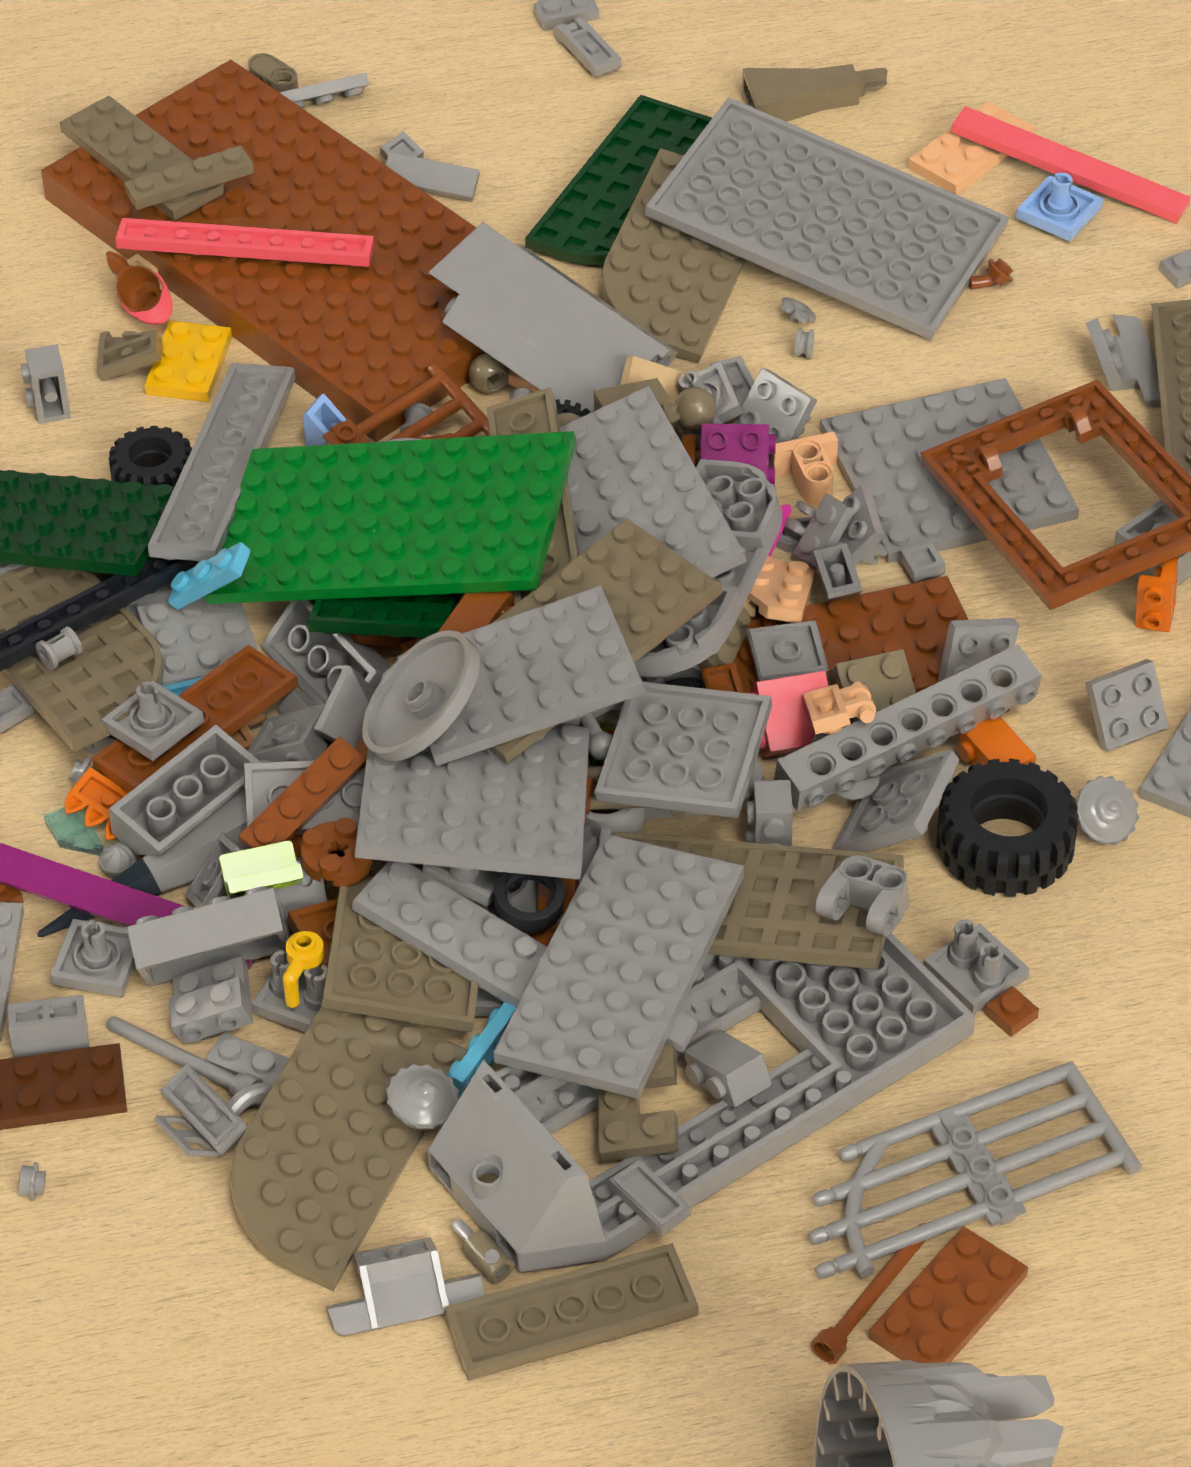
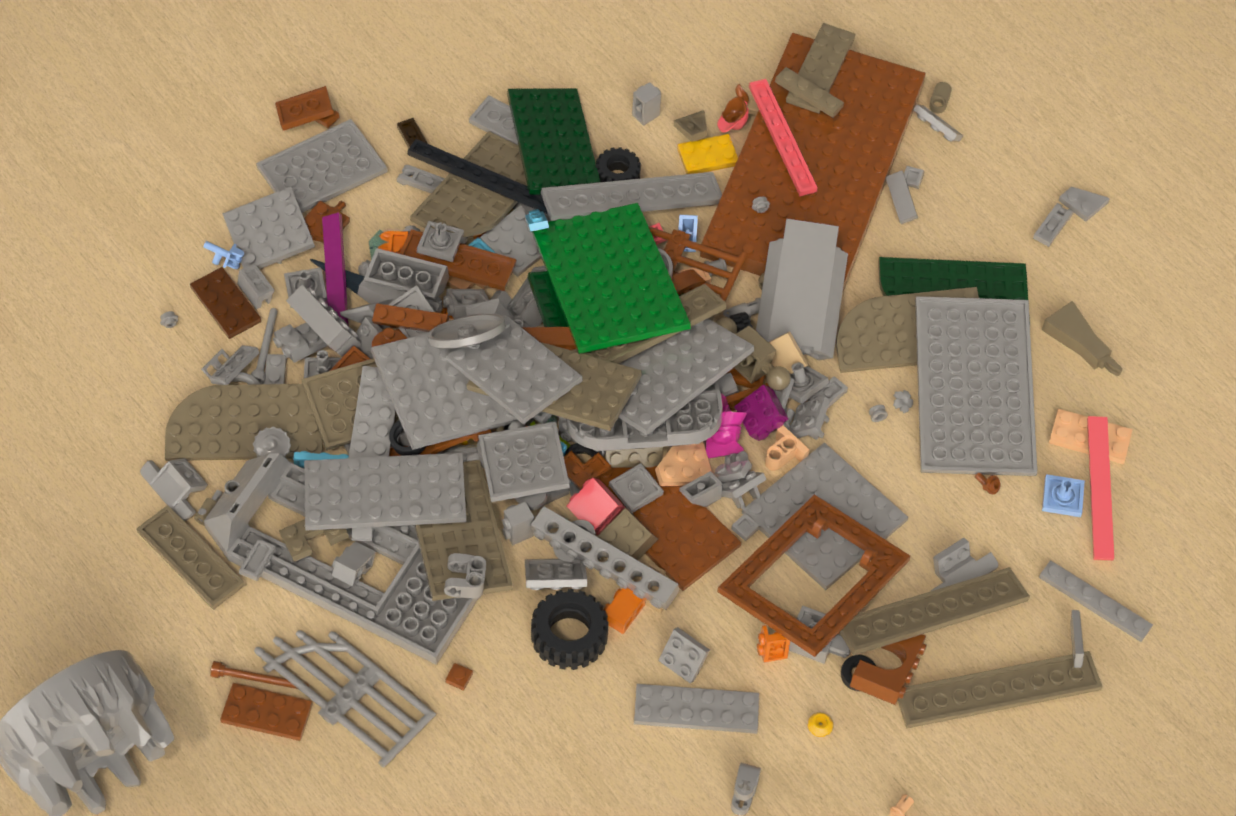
camera: 60 degrees right, 10 degrees up
(58, 648) = (466, 184): light grey bush -> none
(264, 866) = (362, 321): panel -> none
(300, 959) = (327, 365): yellow plate -> none
(357, 312) = (760, 204): none -> light grey plate
(833, 707) = (589, 515): light nougat plate -> none
(975, 641) = (680, 570): light grey plate -> none
(976, 966) = (476, 649): light grey plate -> none
(1107, 810) = (606, 671): light grey piece -> none

